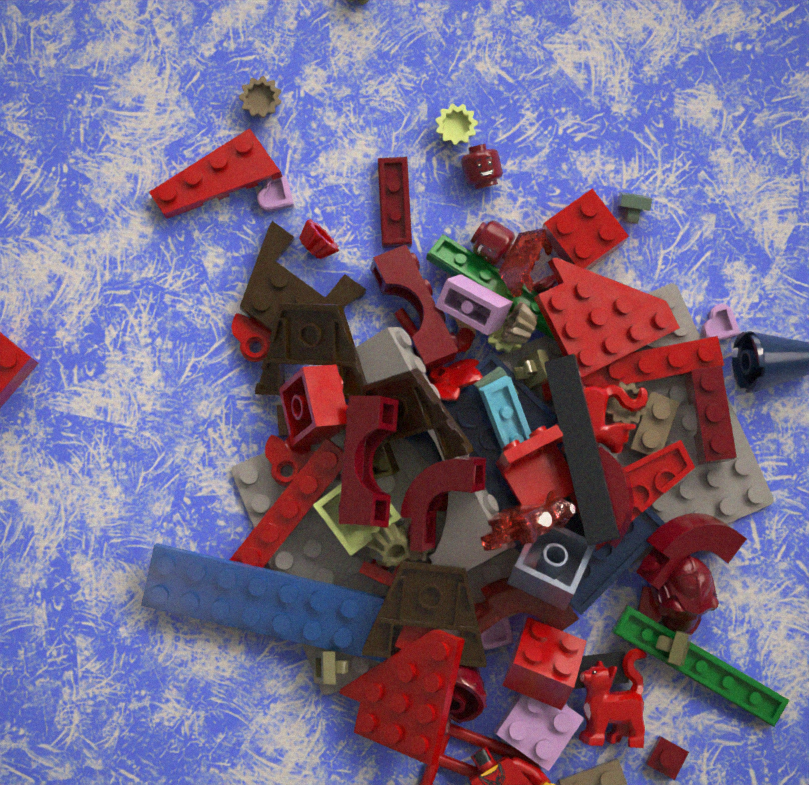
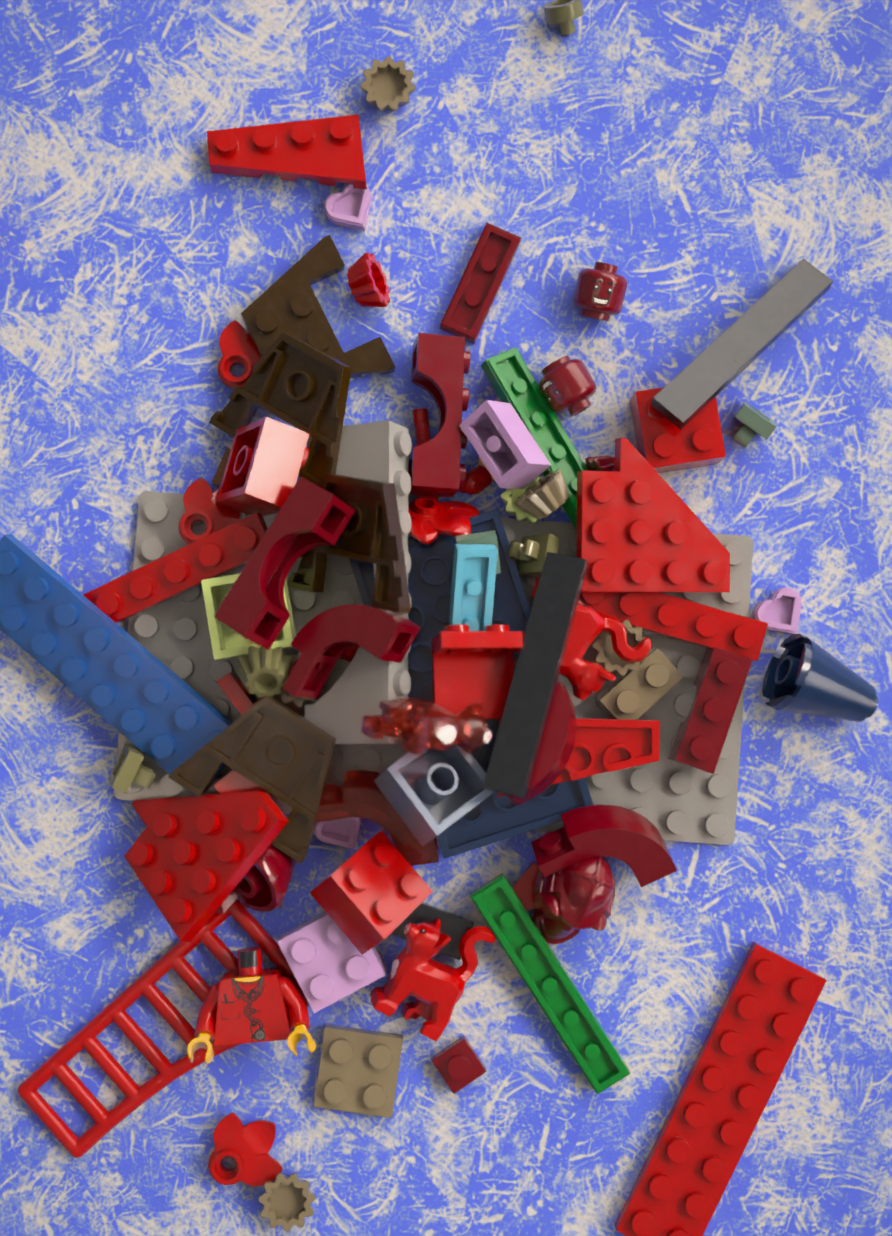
camera: 30 degrees right, 5 degrees up
(456, 124) = (596, 227): yellowish green piece -> none
(521, 260) = (589, 421): clear red hinge -> none
(598, 154) = (741, 344): none -> tile
(677, 647) = (531, 950): olive tile -> none

